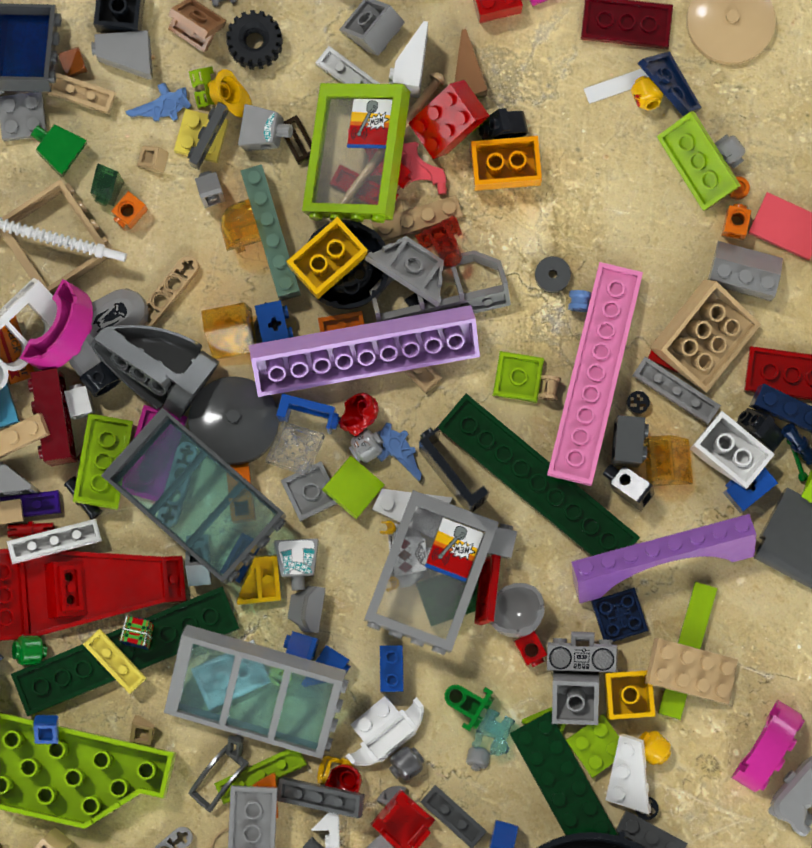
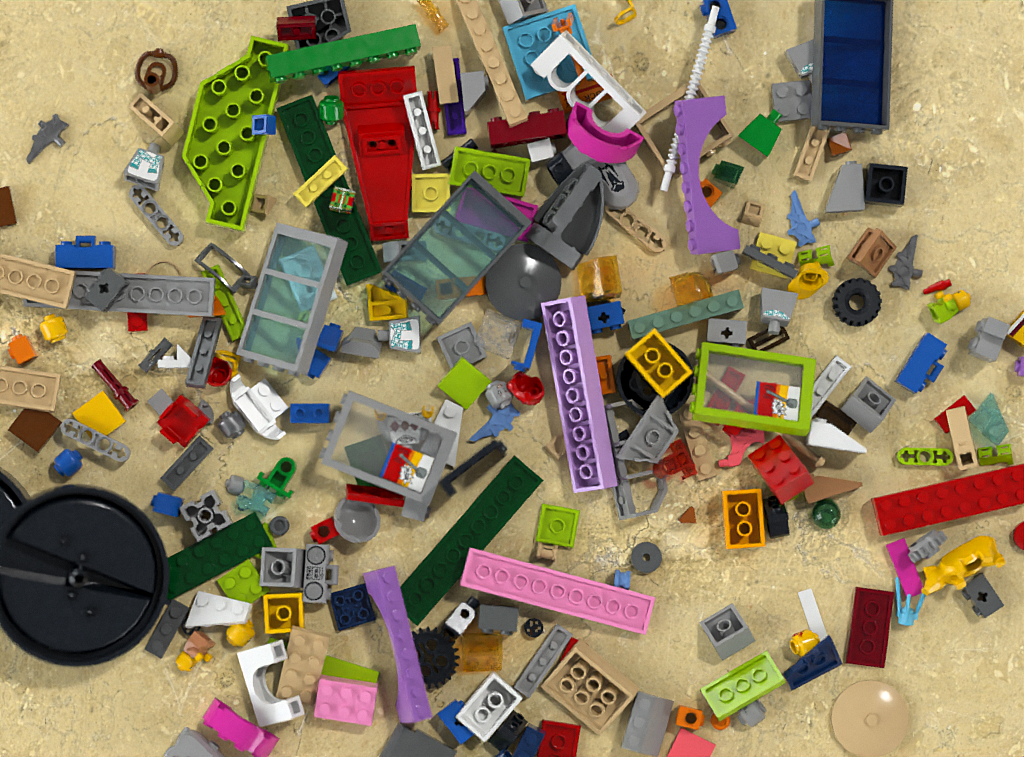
camera: 85 degrees right, 5 degrees up
(47, 221) = (694, 123): none -> medium lavender arch
(128, 531) = (429, 192): none -> light yellow plate
(287, 173) = (735, 327): none -> light grey brick
(381, 68) = (836, 417): none -> dark brown tile
(498, 71) = (826, 513): none -> clear green hair
(504, 226) = (688, 516): none -> dark orange slope
(525, 703) = (279, 525): none -> dark grey tile
(529, 795) = (194, 511): none -> light grey brick
(636, 180) = (727, 631): none -> light grey slope
(666, 506) = (444, 648): none -> black gear
(678, 802) = (195, 651): none -> piece
(730, 619) = (346, 700): none -> bright pink brick
(742, 713) = (266, 706): none -> white arch

